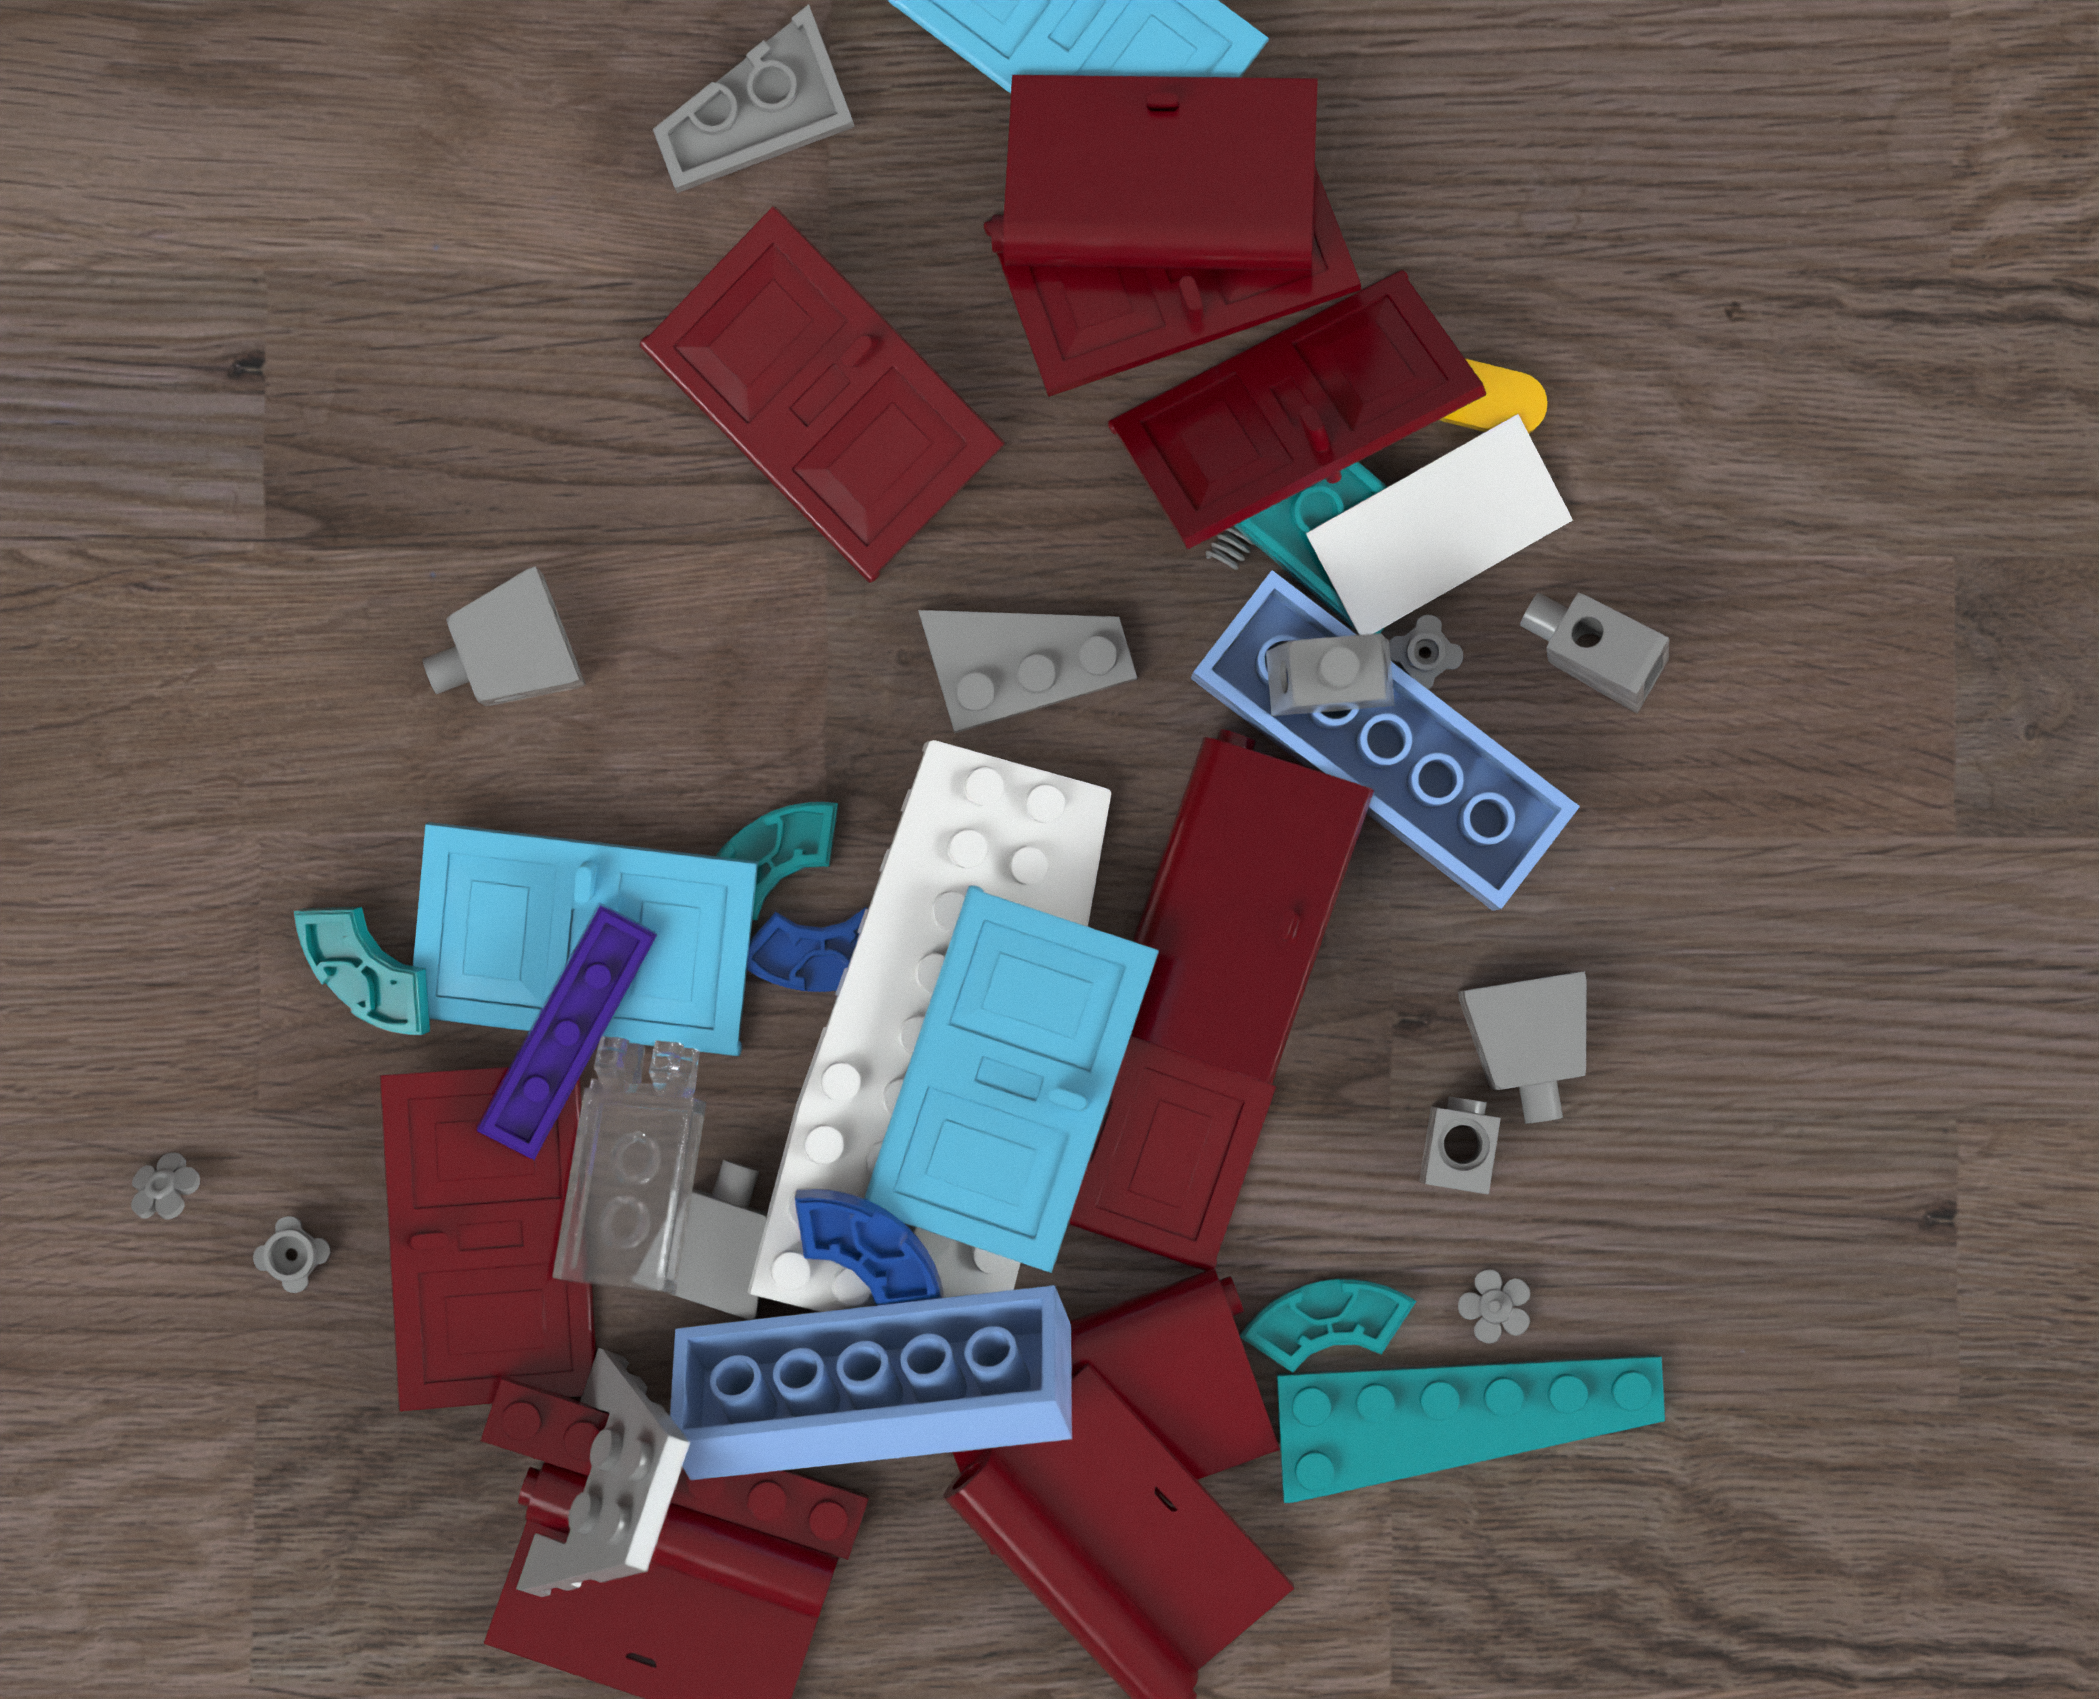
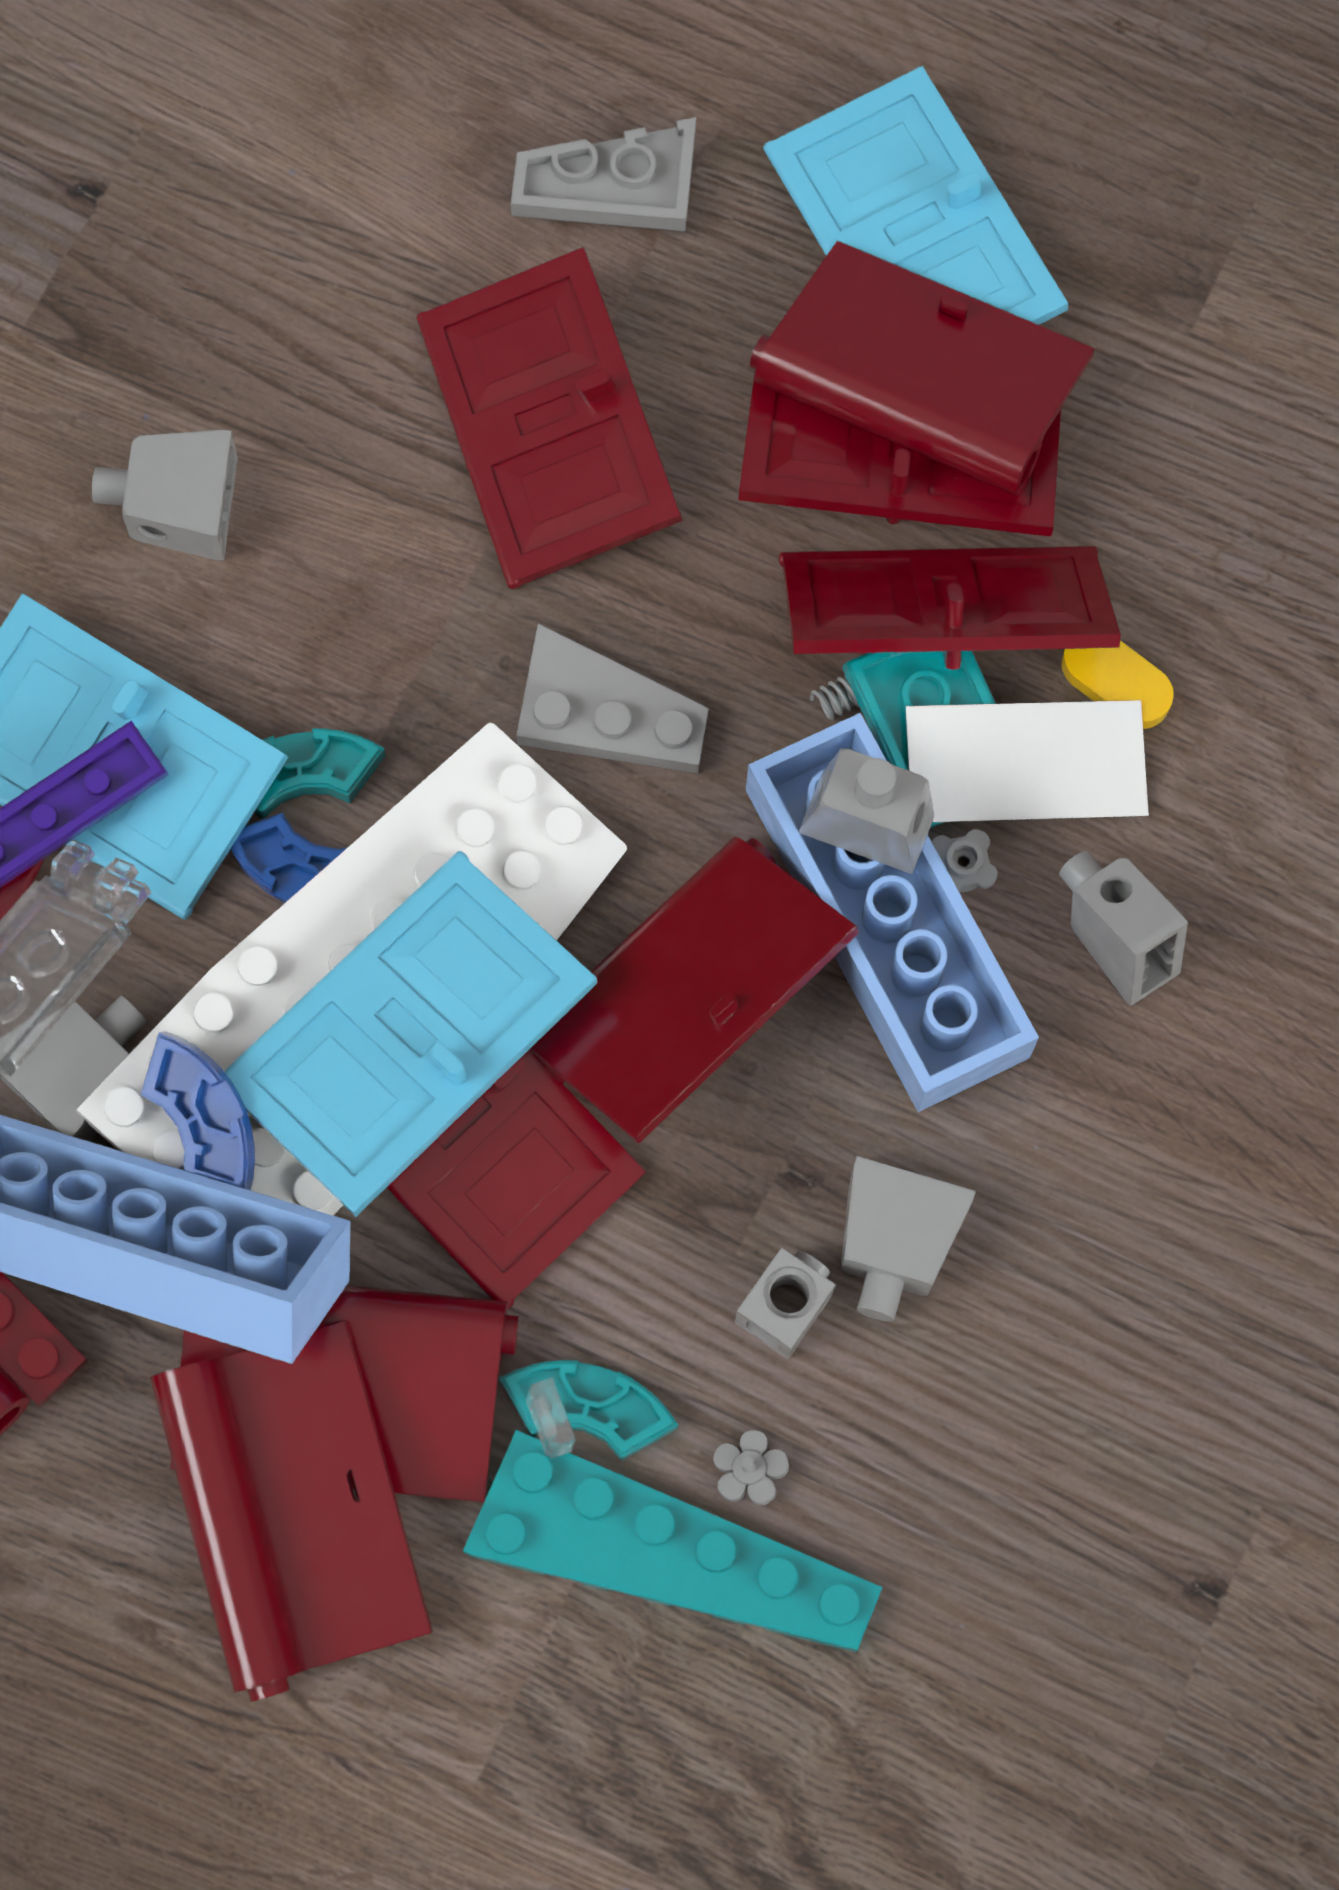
camera: 25 degrees right, 15 degrees down
(1307, 1358) = (550, 1418): none -> clear tile

